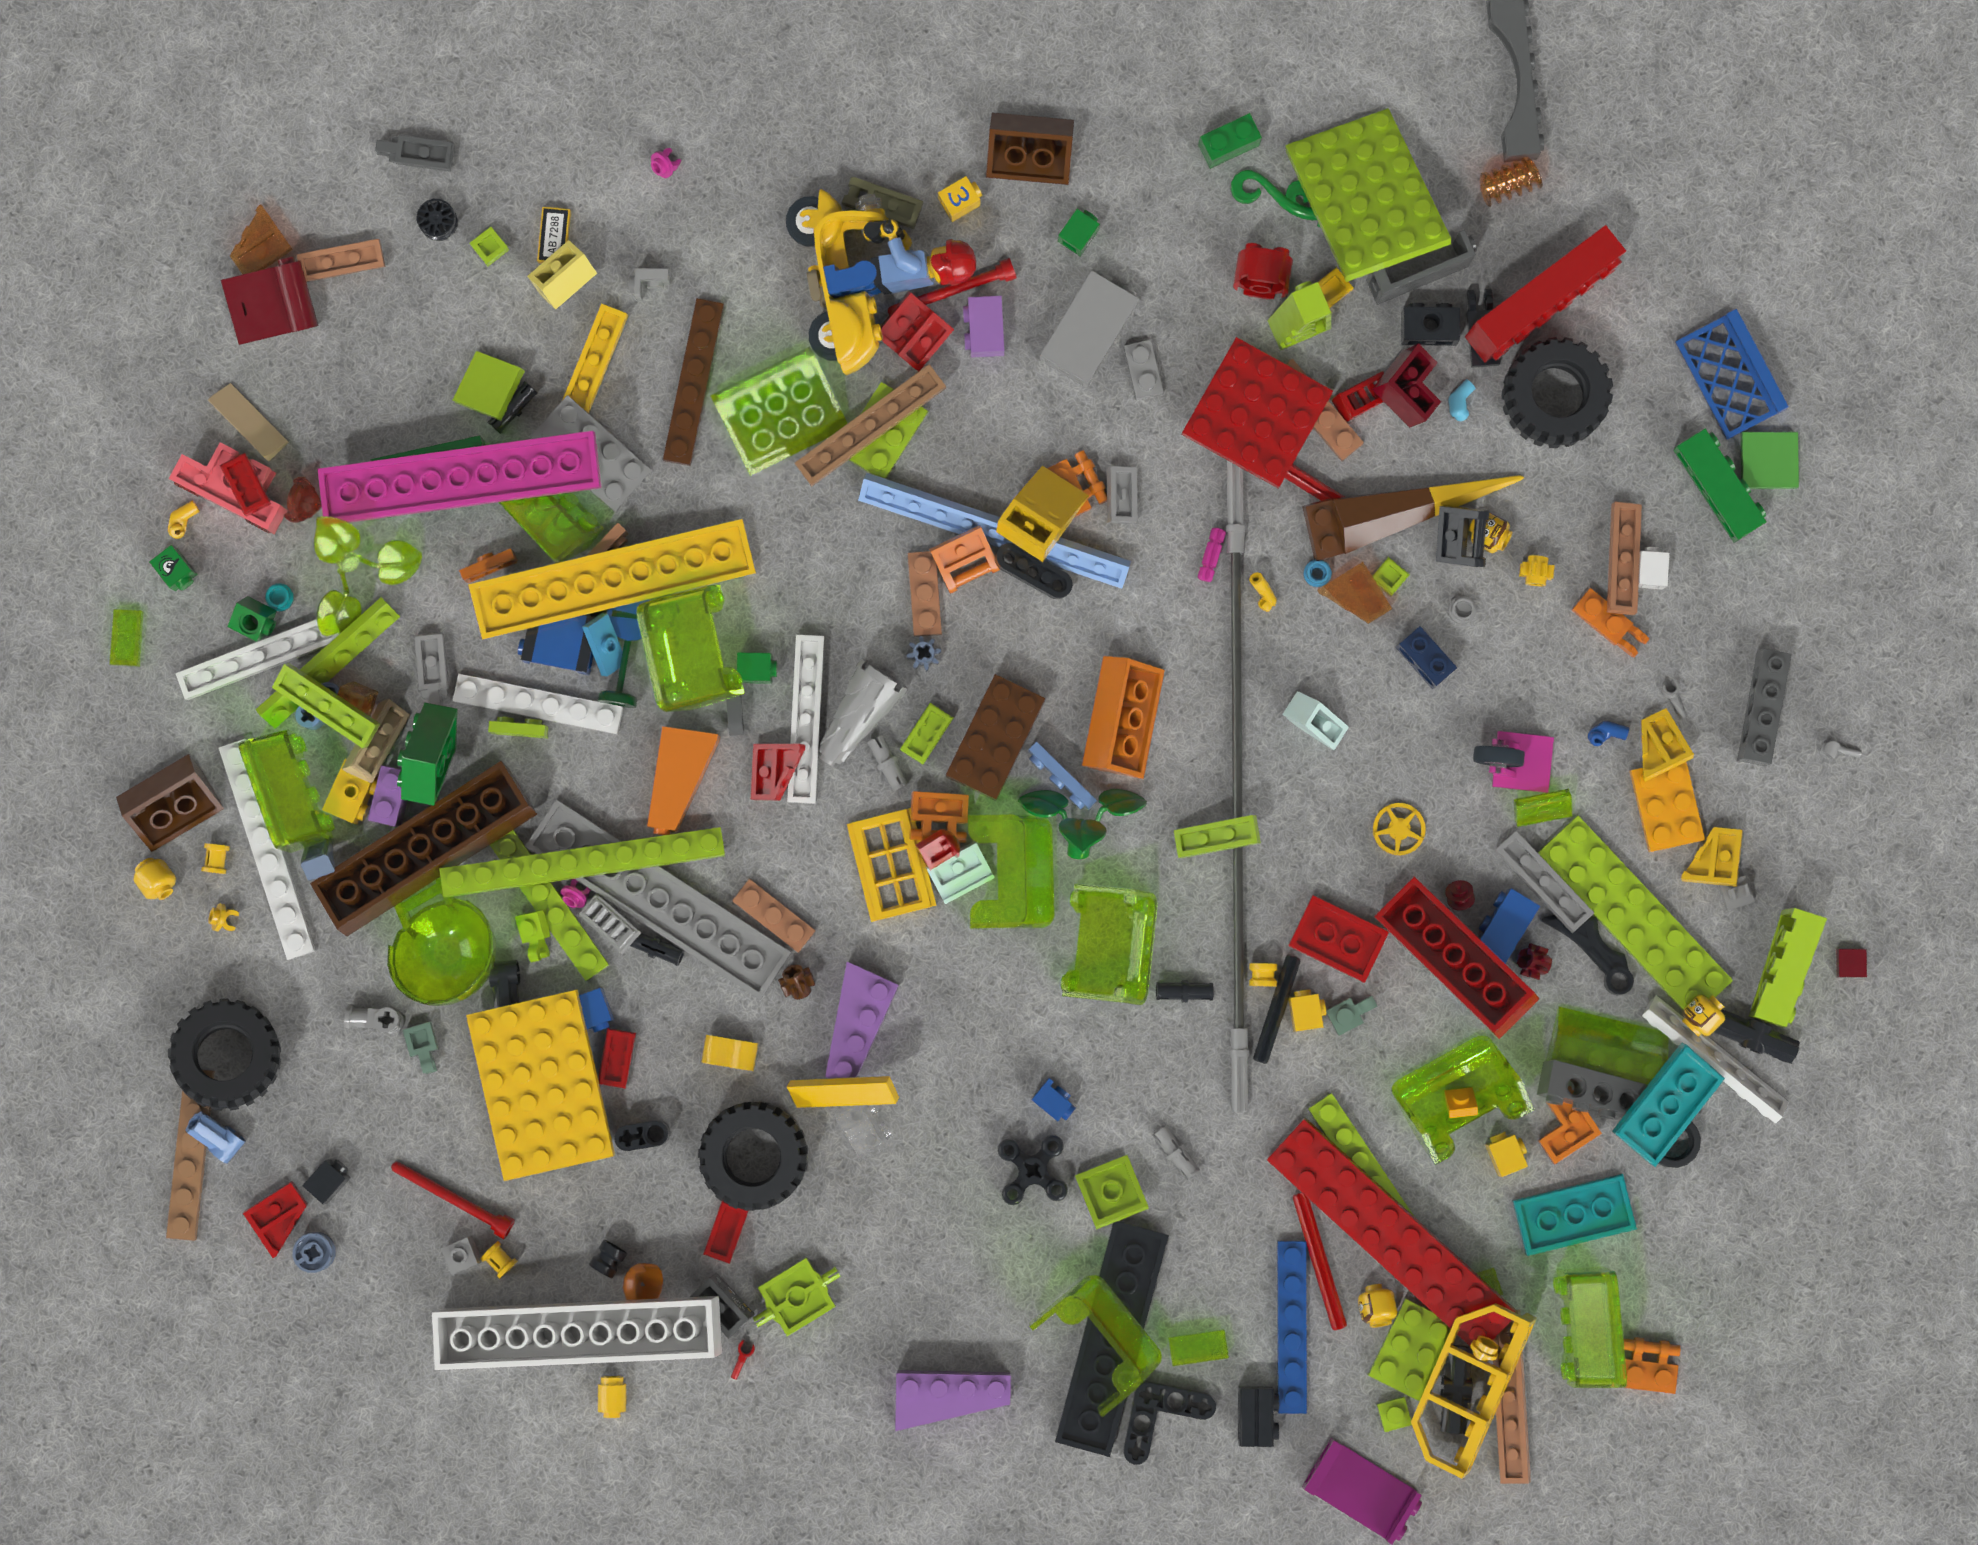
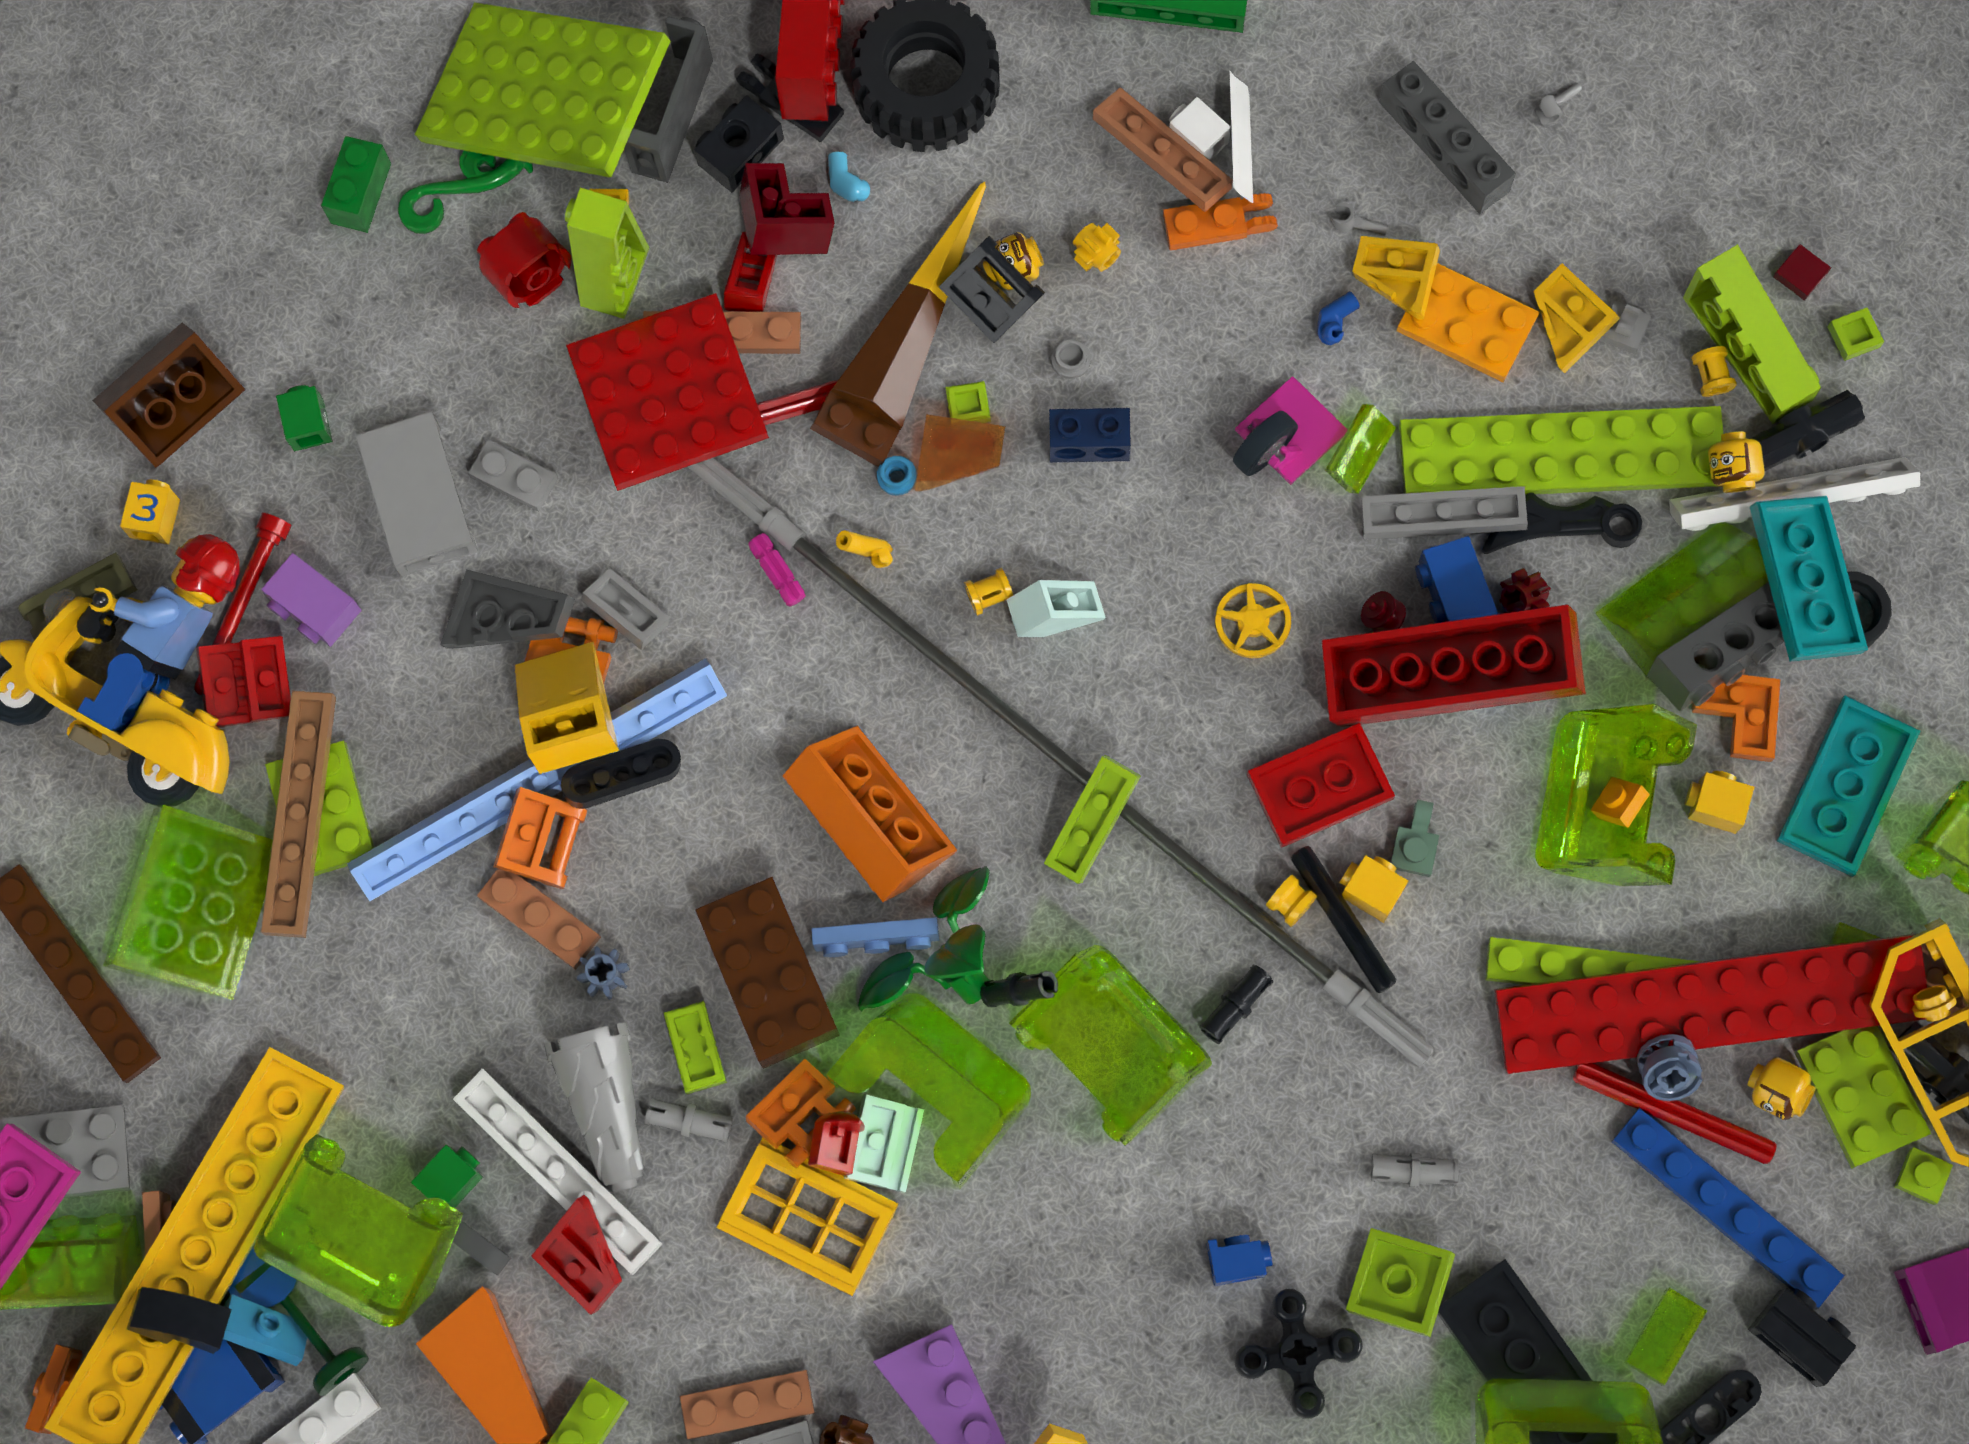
camera: 45 degrees left, 10 degrees down
(574, 600) = (179, 1317): none -> black slope
(1065, 433) = (504, 611): none -> dark grey wing
(1095, 875) = (1019, 989): none -> black pin
(1295, 677) = (988, 591): none -> yellow bush
(1337, 1242) = (1671, 1070): none -> sand blue wheel
(1669, 594) = (1241, 138): none -> white sticker
(1750, 961) = (1713, 371): none -> yellow bush
(1838, 1020) = (1855, 334): none -> lime plate

